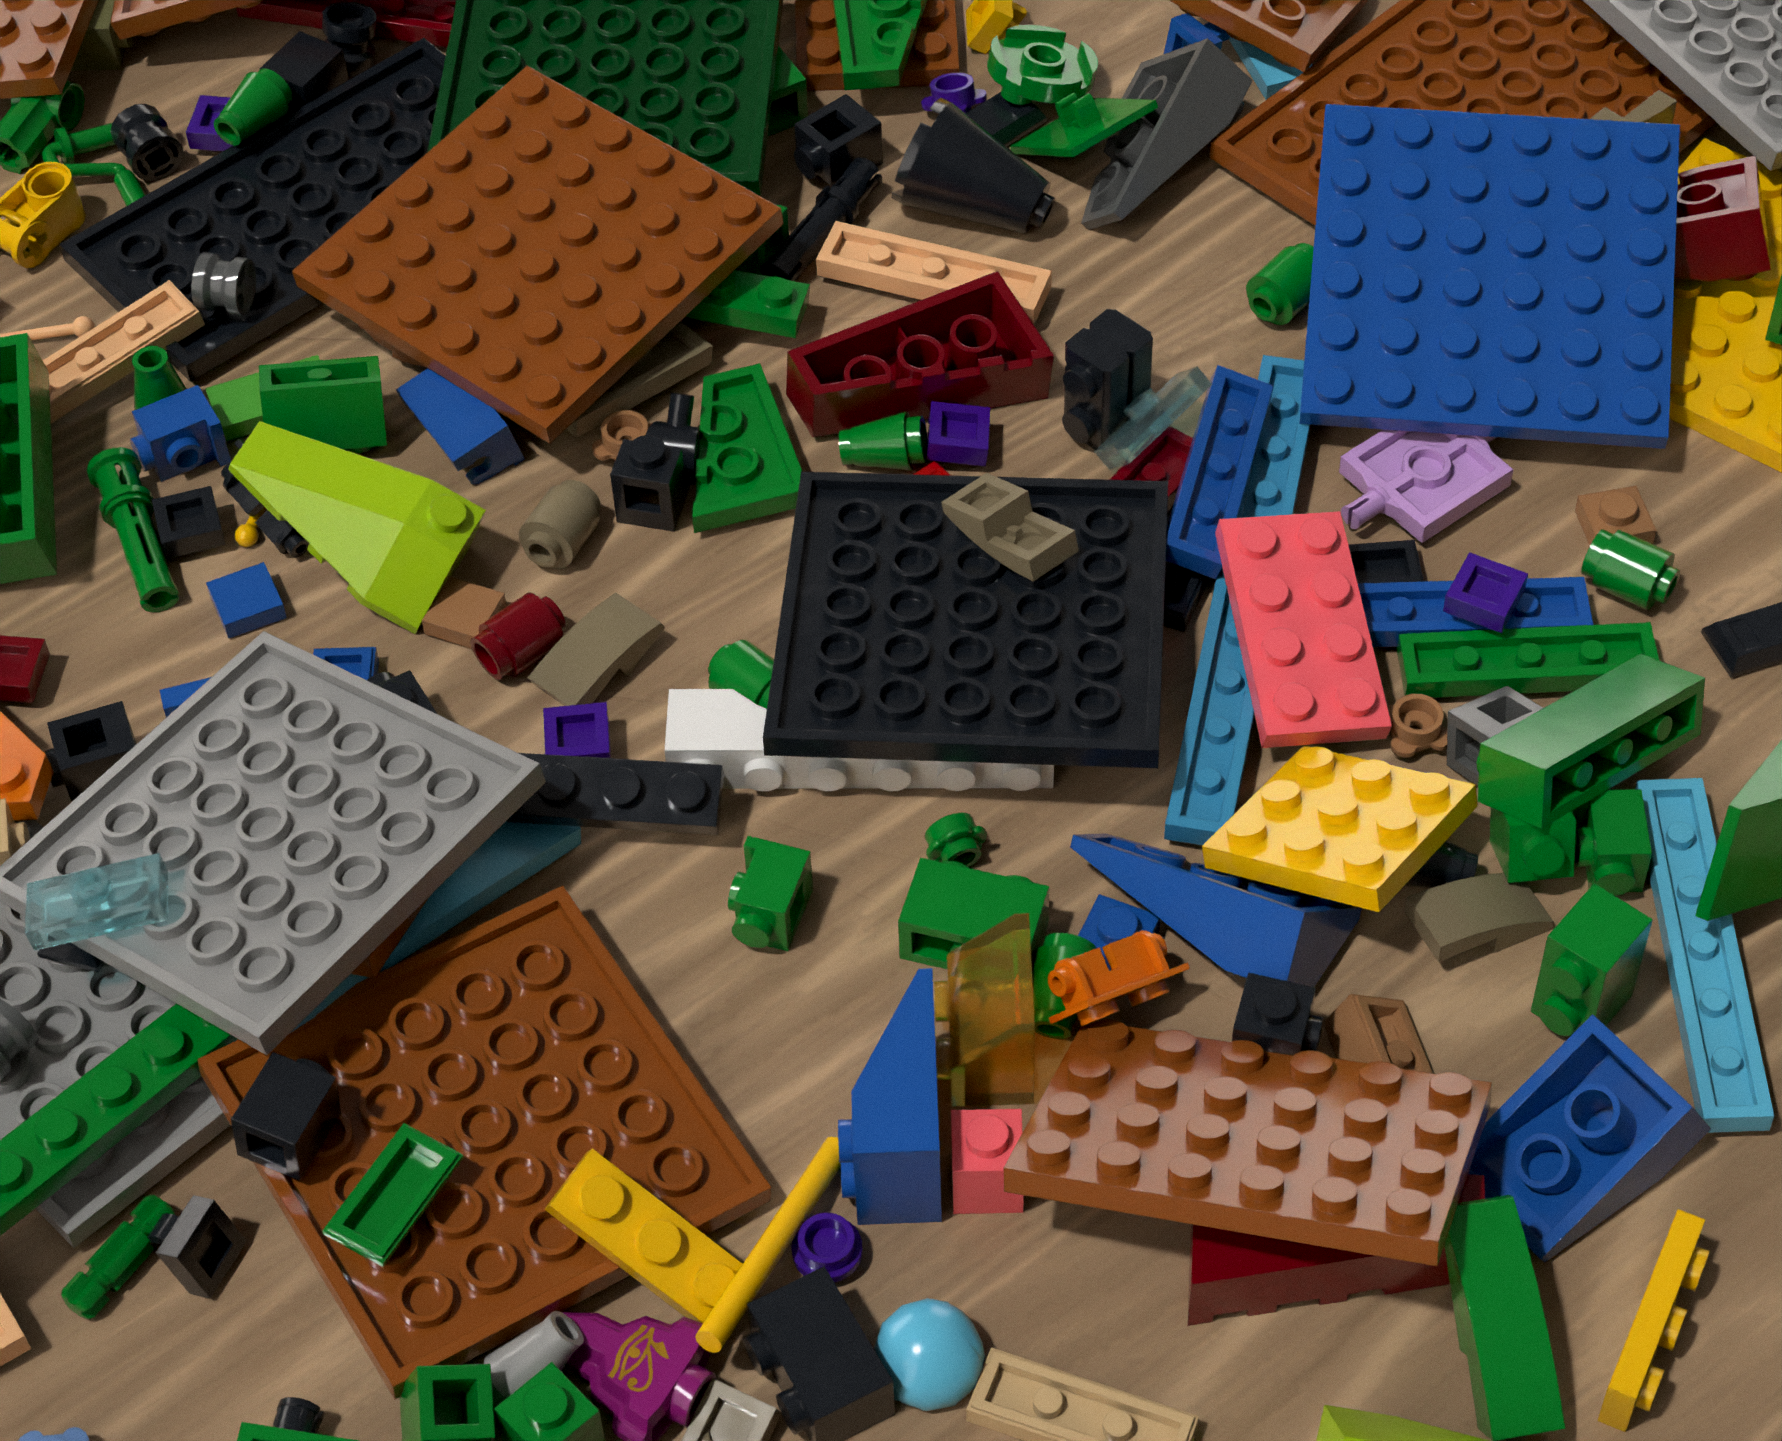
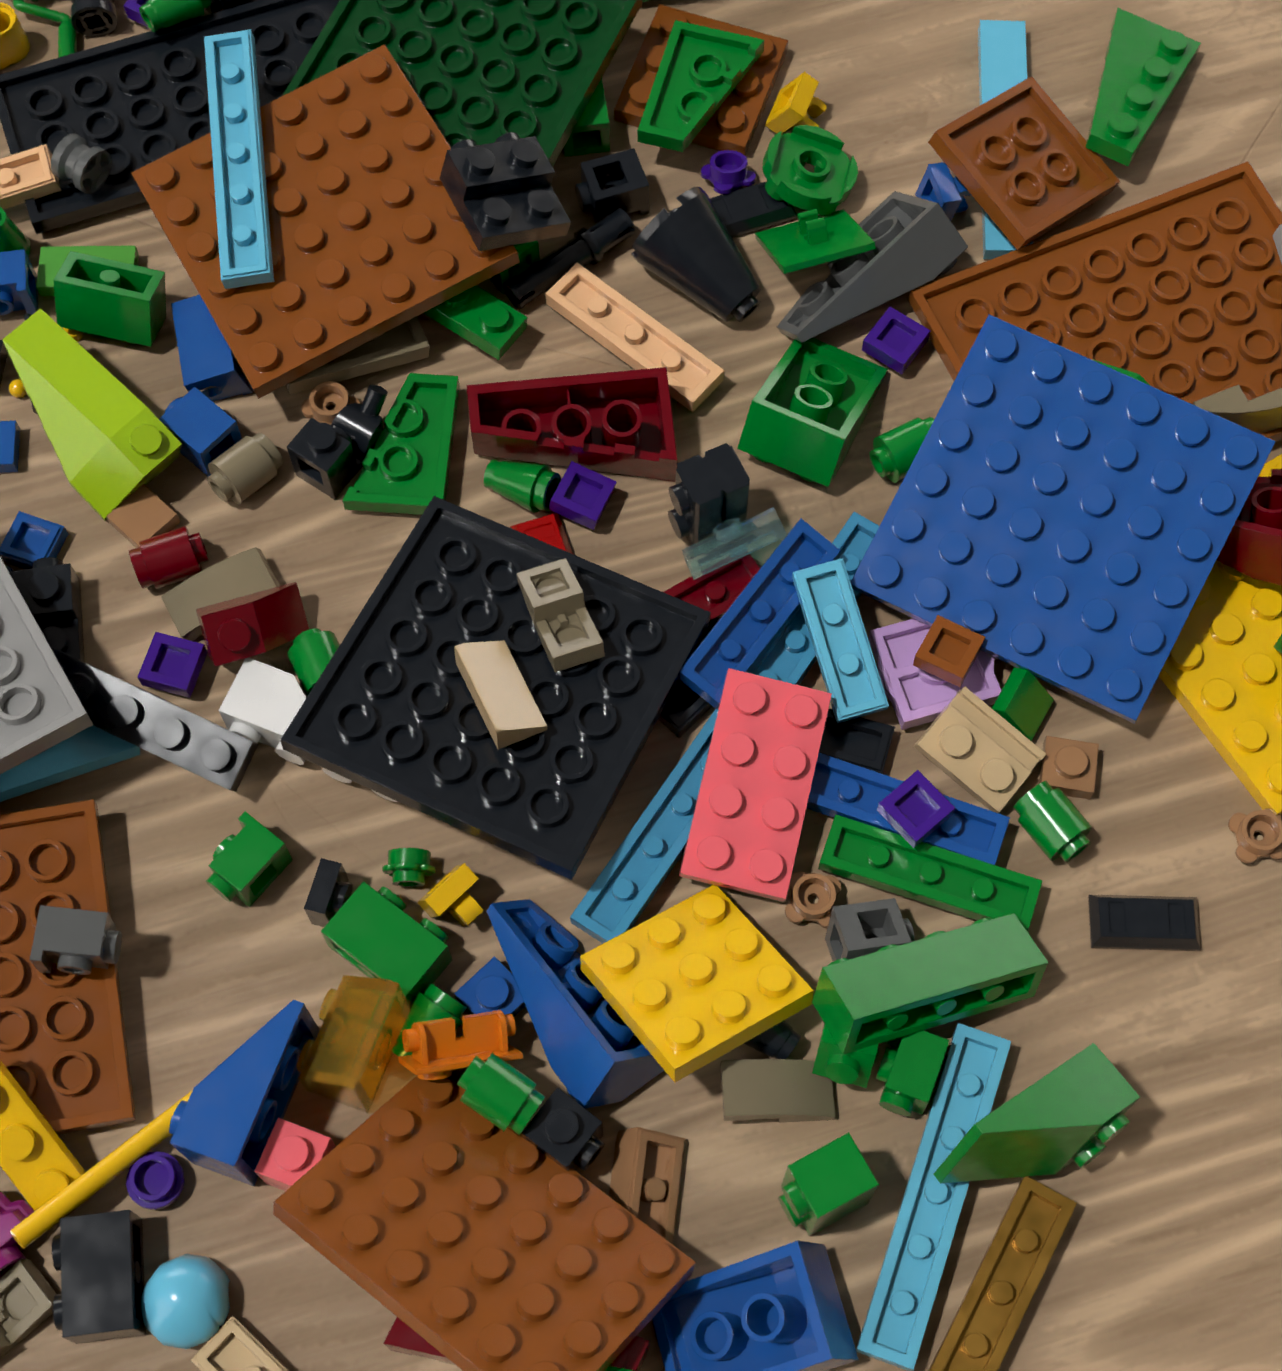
camera: 20 degrees right, 15 degrees up
(420, 214) = (238, 160): none -> medium azure tile
(505, 494) = (200, 428): none -> blue brick
(622, 1016) = (74, 940): none -> dark grey brick
(648, 663) = (252, 623): none -> dark red slope
(740, 152) = (504, 191): none -> black plate
(881, 895) = (328, 892): none -> black plate
(982, 615) = (499, 691): none -> tan slope
(1023, 850) = (452, 895): none -> yellow tile
(1169, 279) = (811, 409): none -> green slope
(1190, 996) = (500, 1093): none -> green brick
(1218, 193) = (895, 340): none -> dark purple plate
(1318, 464) = (840, 640): none -> medium azure tile
(1440, 438) = (949, 651): none -> dark orange plate
(1517, 525) = (979, 750): none -> tan plate
(1537, 474) = (1023, 702): none -> green tile

